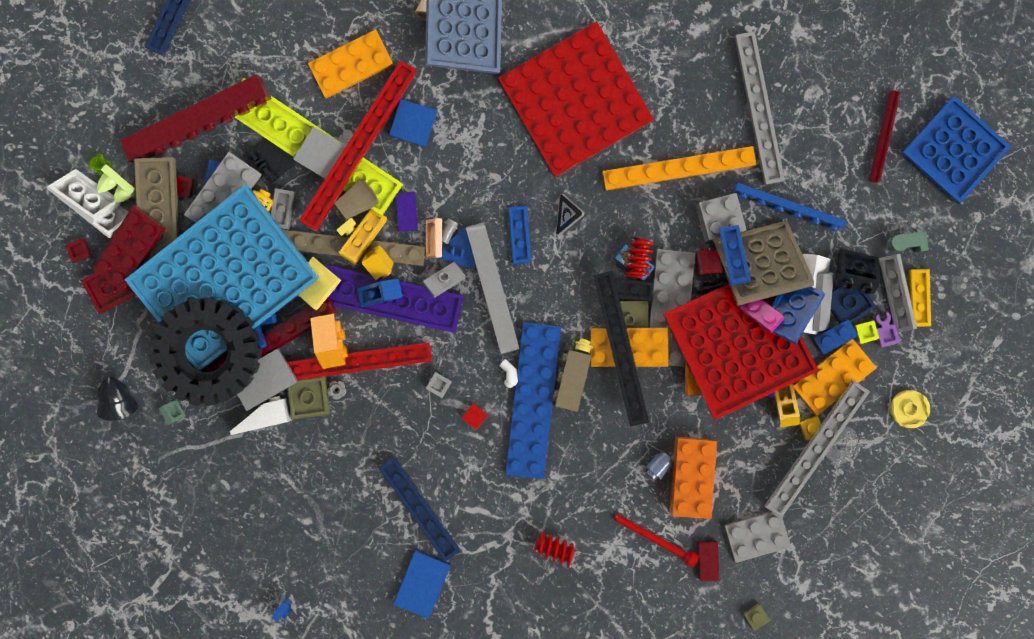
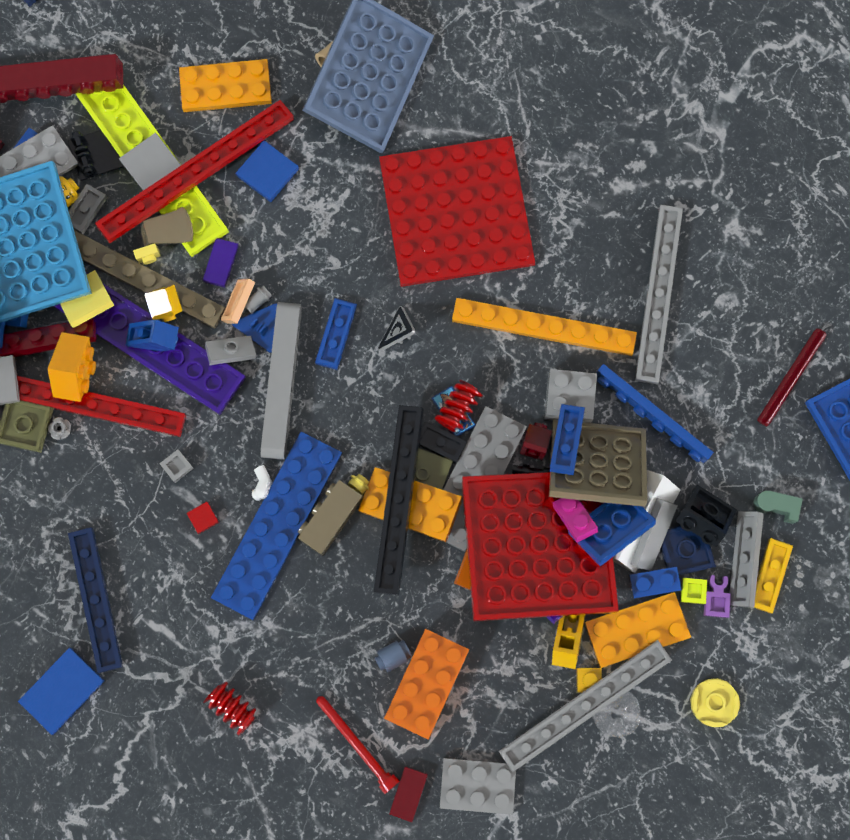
camera: 25 degrees right, 10 degrees down
(362, 236) = (159, 269): yellow tile -> none

